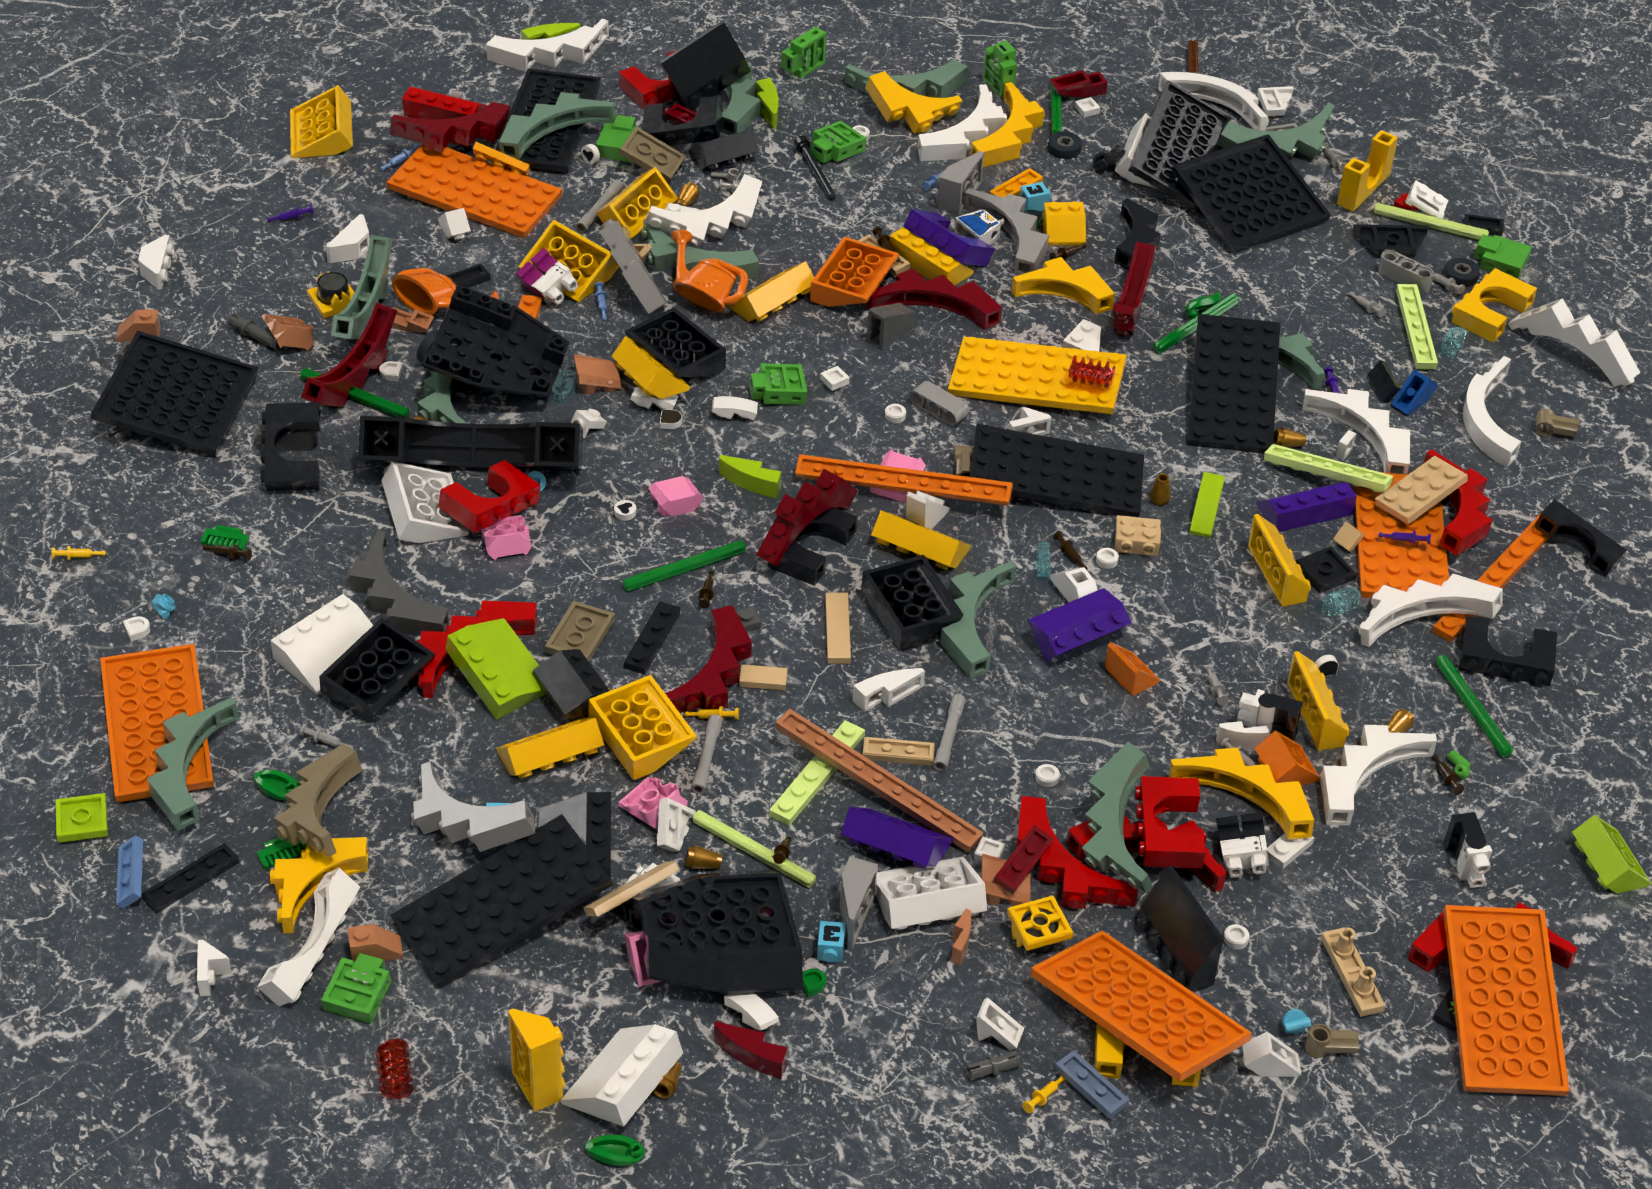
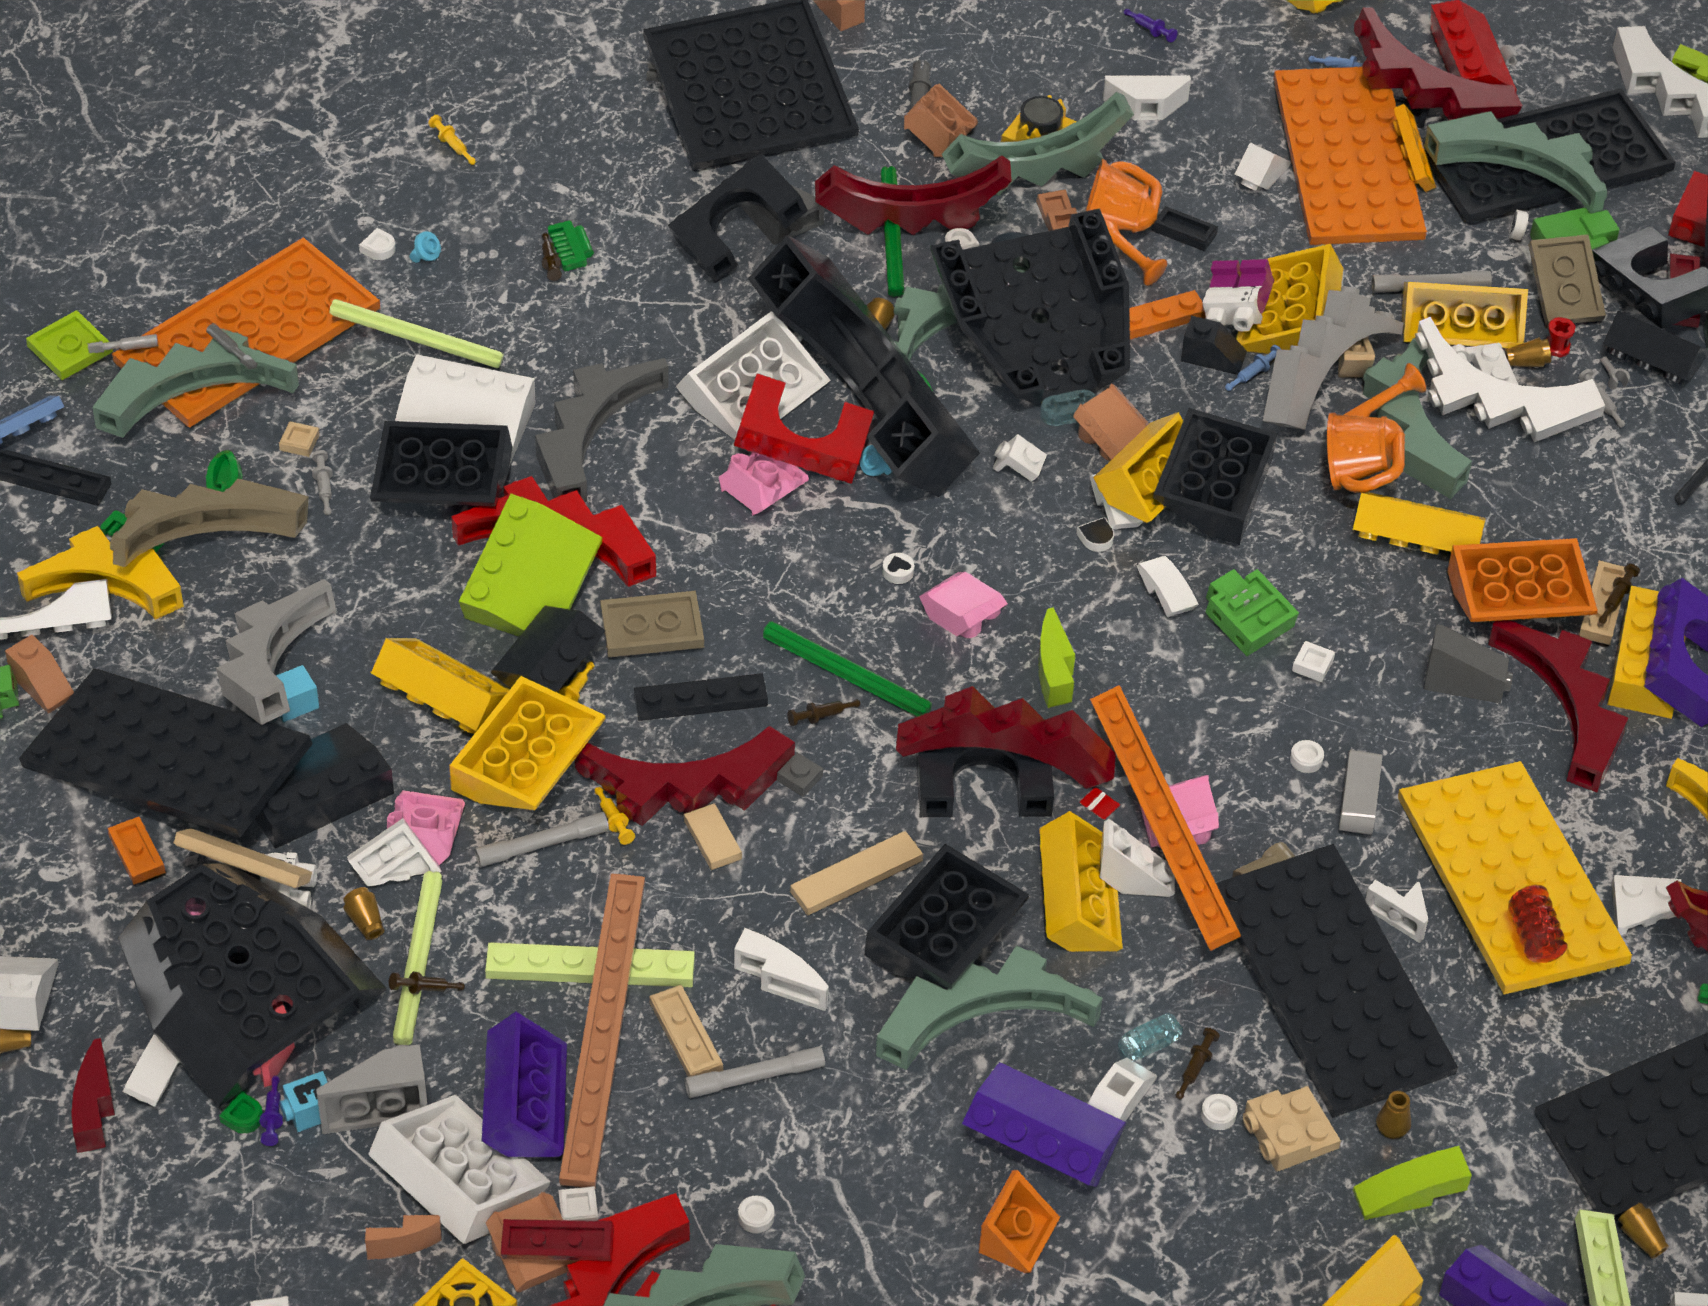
camera: 60 degrees right, 5 degrees up
(116, 783) = (125, 344): none -> light grey piece
(186, 721) = (230, 345): none -> dark grey piece
(240, 638) = (416, 333): none -> yellowish green axle
(274, 735) = (299, 439): none -> tan tile
(564, 952) = (136, 850): none -> orange plate
(571, 308) = (1212, 346): none -> black slope
(686, 175) = (1560, 332): none -> red bush
(827, 967) = (271, 1118): none -> dark purple piece
(862, 508) = (1099, 803): none -> red sticker

